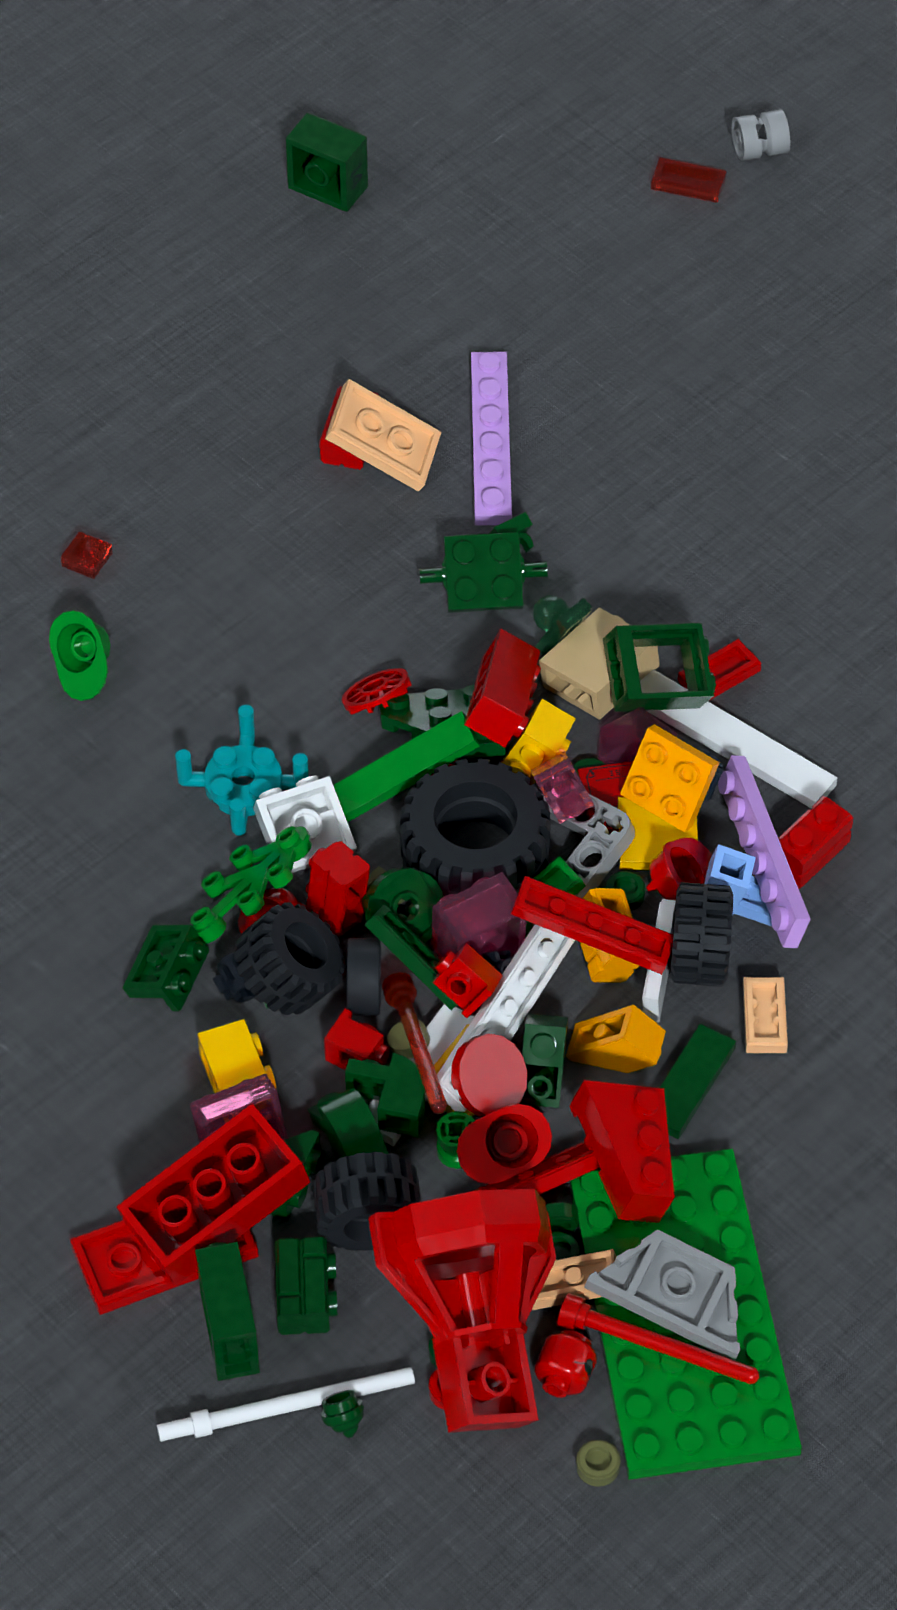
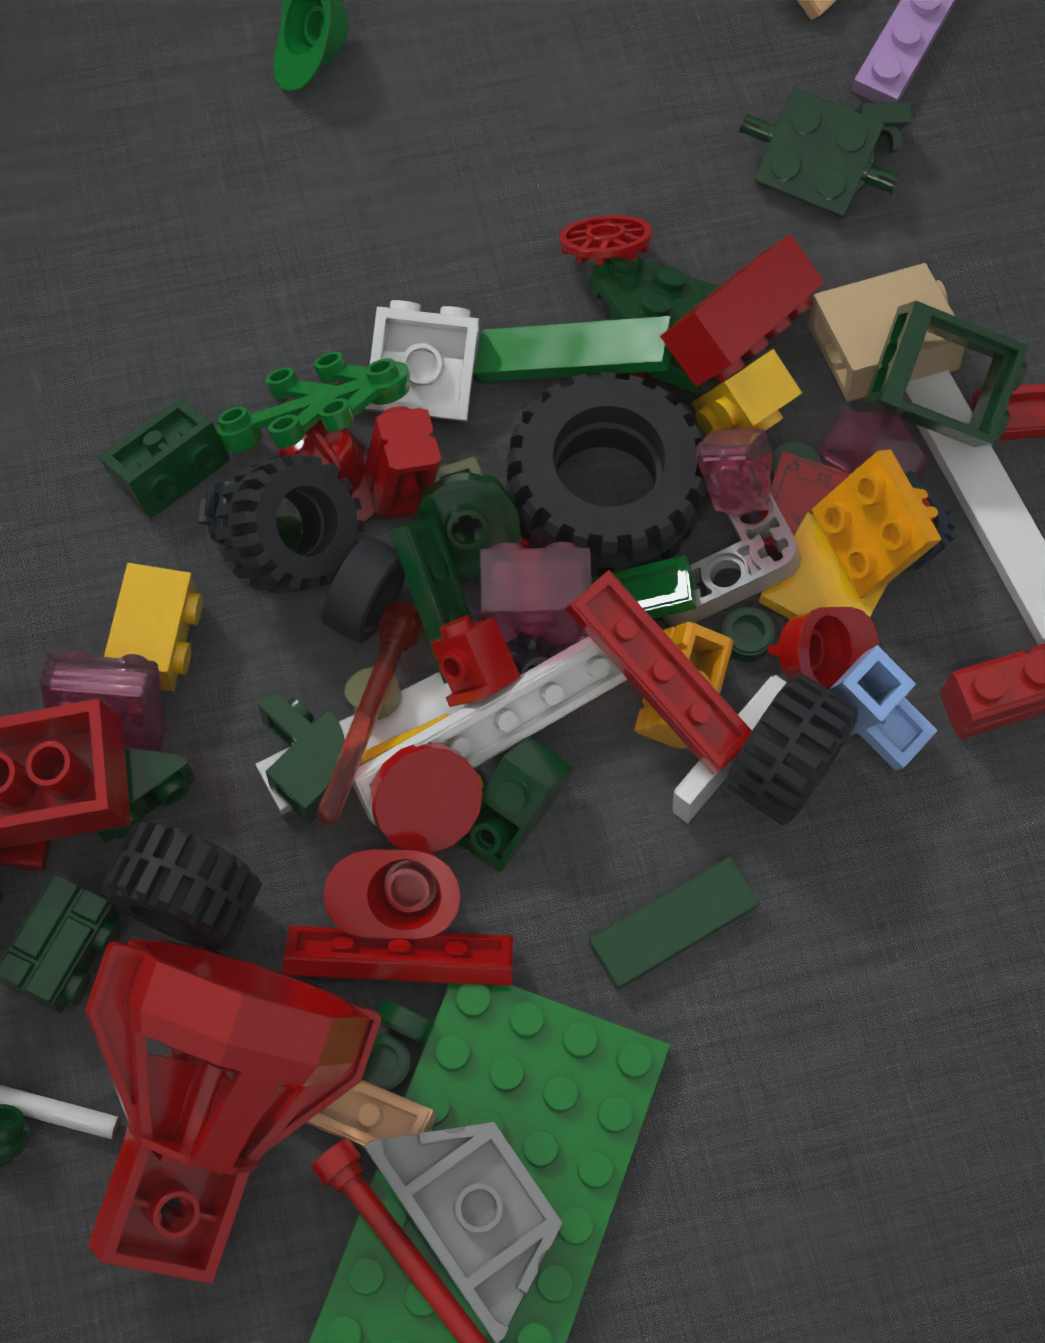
camera: 25 degrees right, 15 degrees up
(240, 761) = (394, 245): teal plate -> none
(347, 1123) = (230, 774): dark green brick -> none
(354, 1041) = (309, 667): red brick -> none
(447, 1133) = (343, 834): green wheel -> none
(557, 619) = (865, 253): clear green tile -> none
(565, 1363) = (294, 1222): red head -> none
(617, 1041) = (615, 828): light orange slope -> none
(631, 1143) = (531, 988): red wedge -> none
(760, 840) = (936, 676): lavender plate -> none
(765, 1015) = (815, 887): light nougat plate -> none

